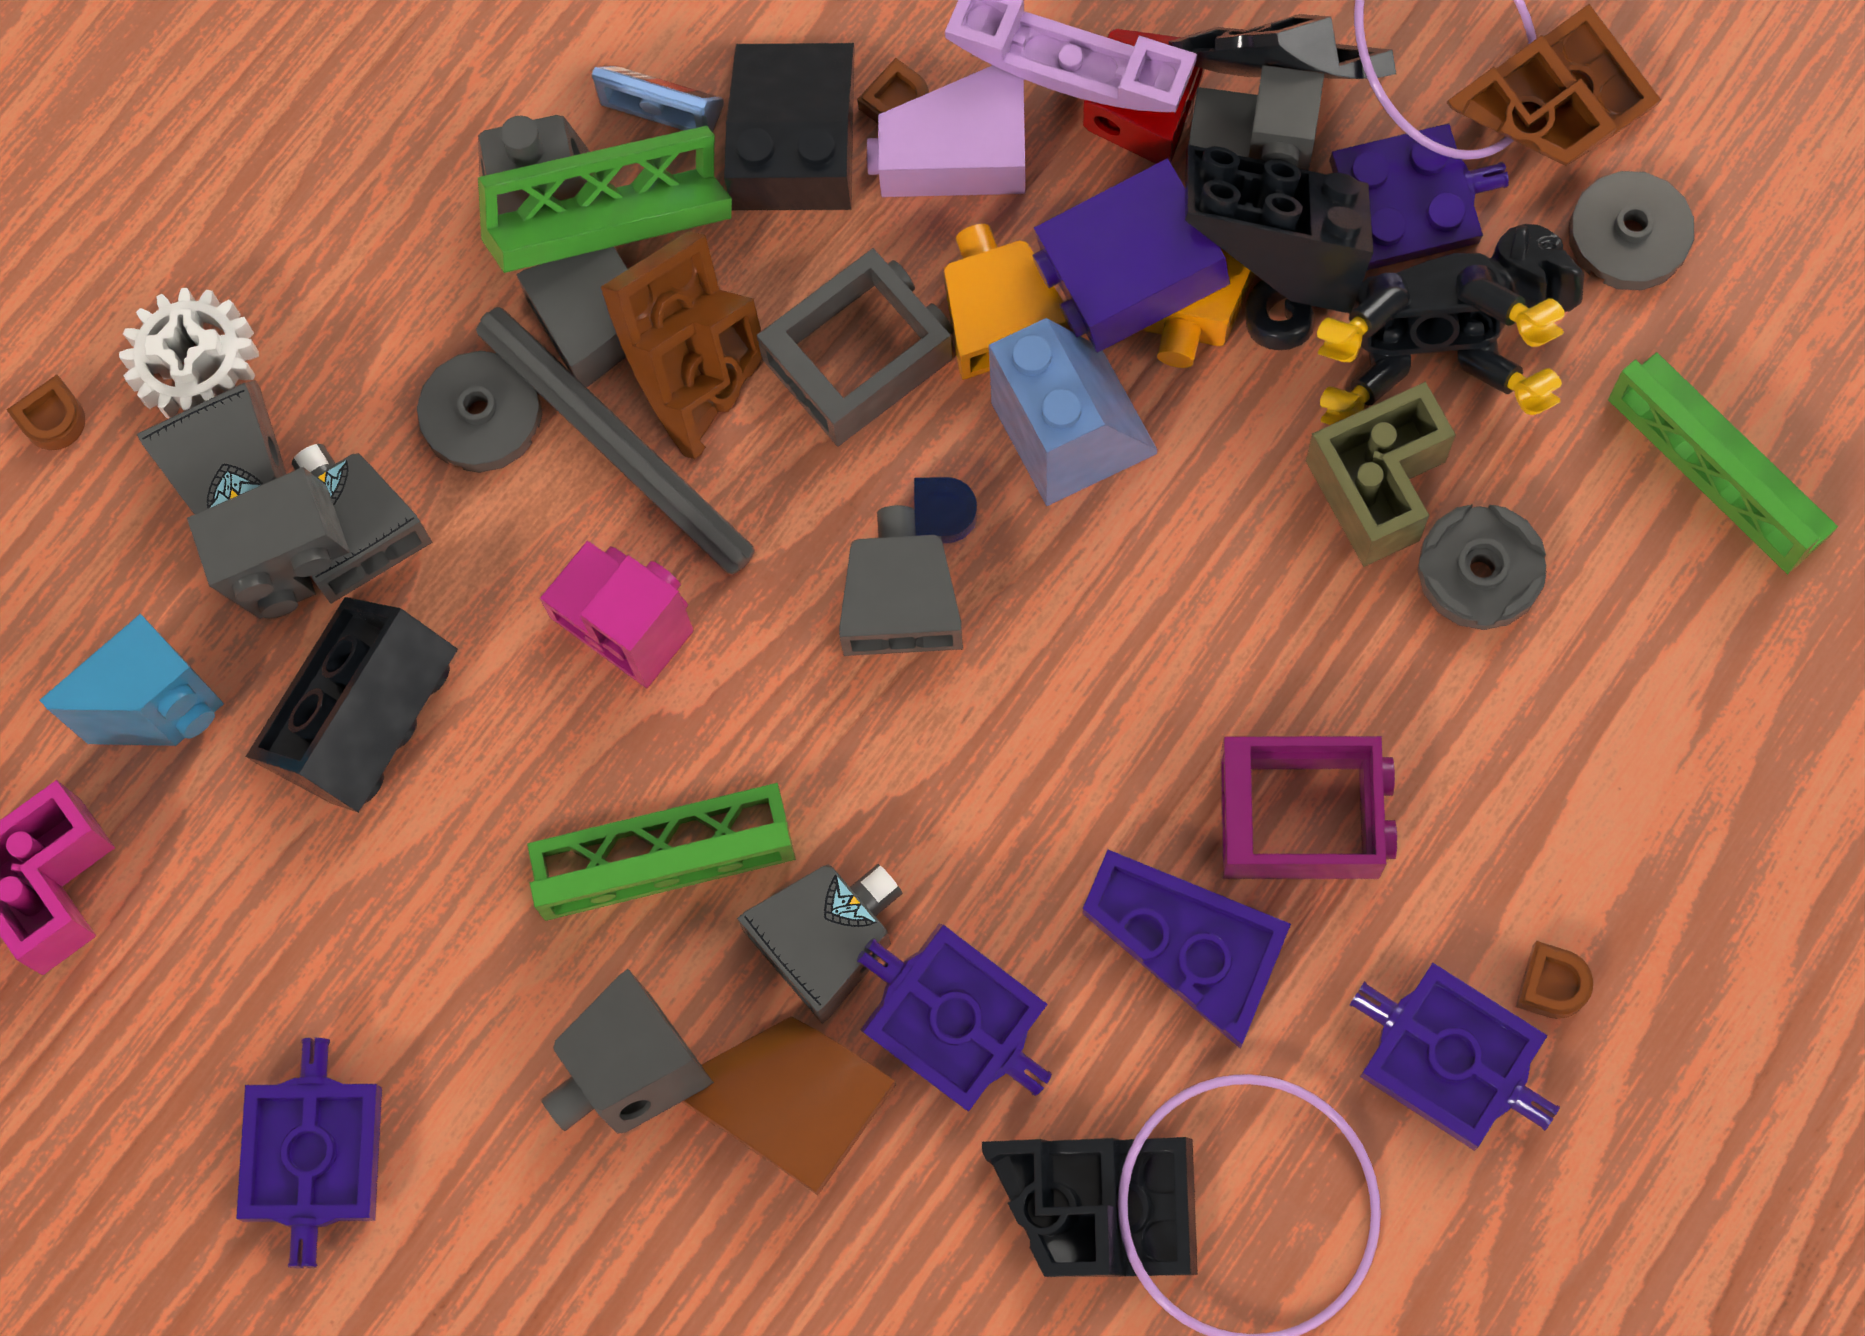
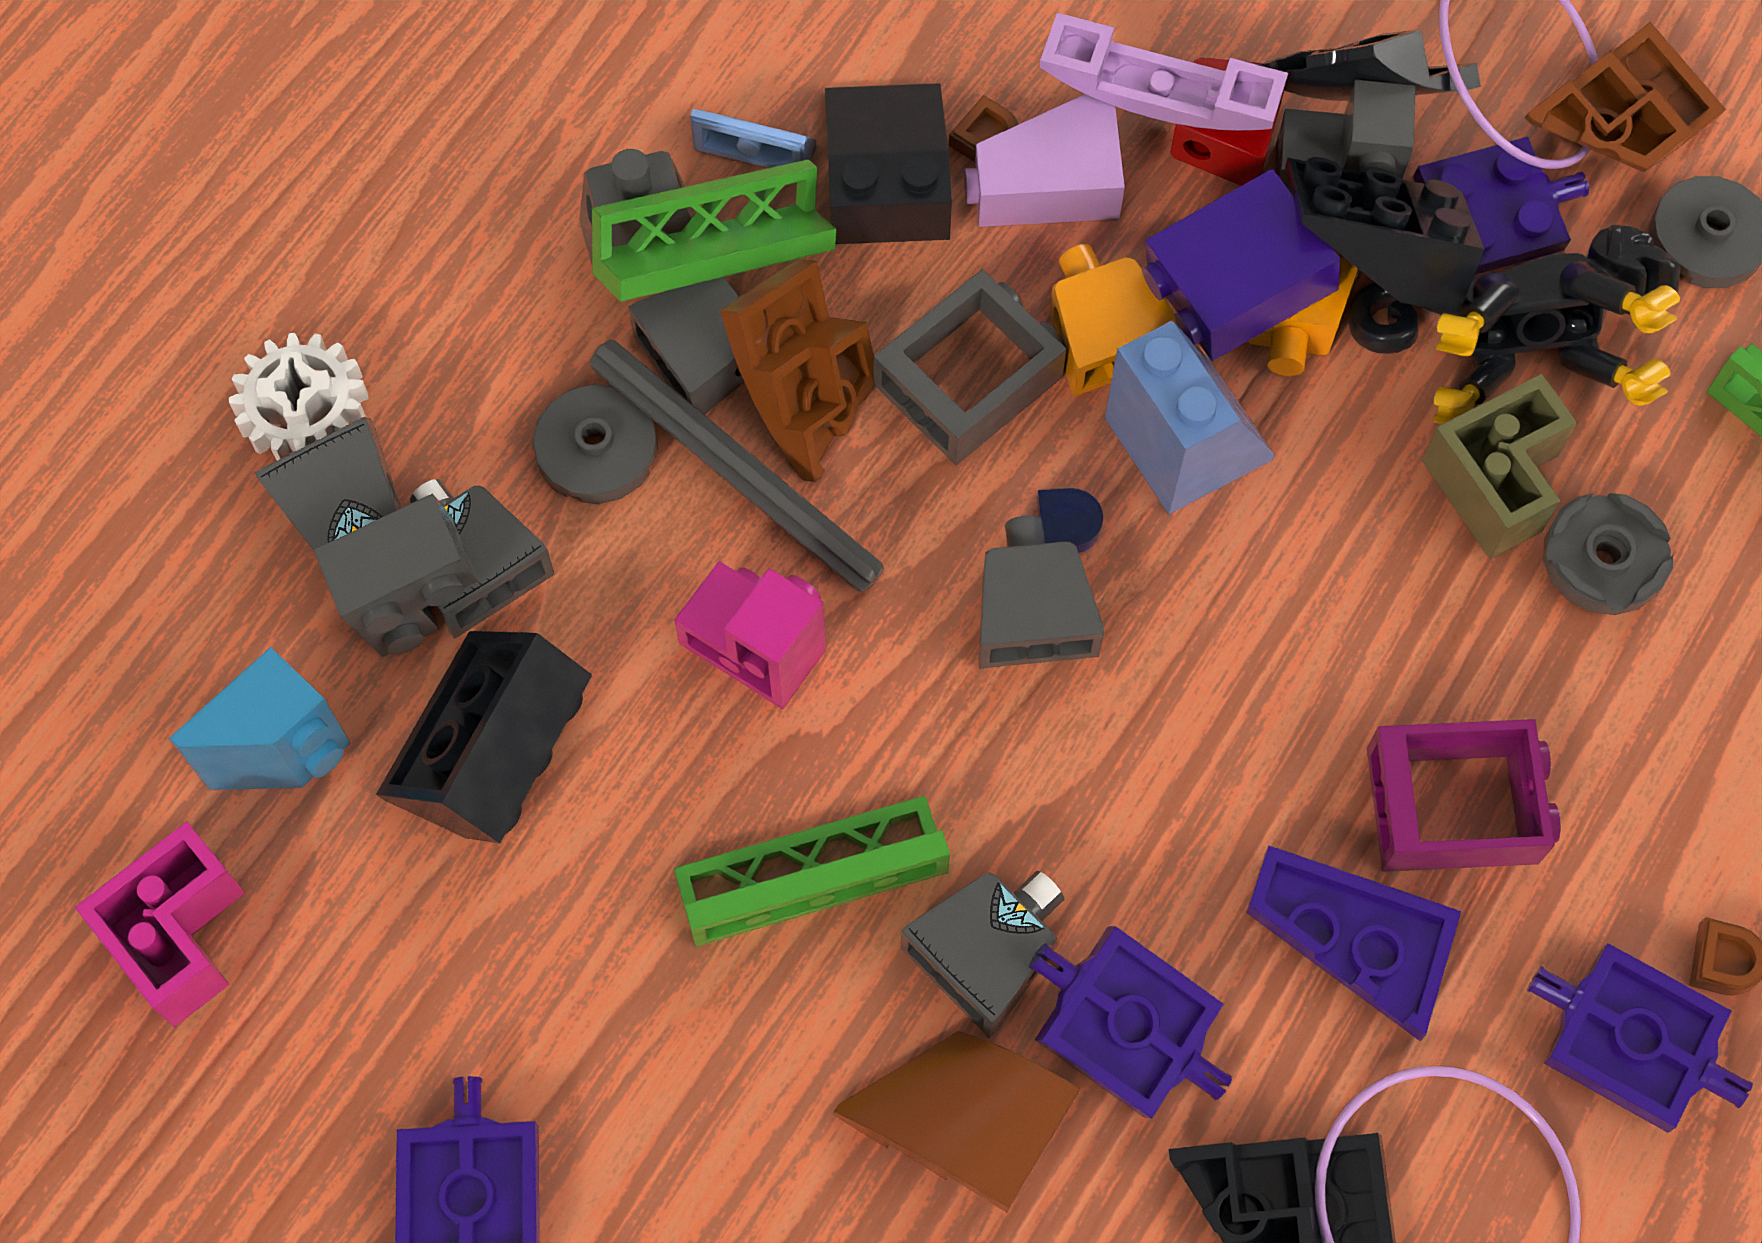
camera: 10 degrees left, 5 degrees down
(50, 415) = (157, 465): dark orange tile -> none
(623, 1061) = (793, 1084): dark grey torso -> none

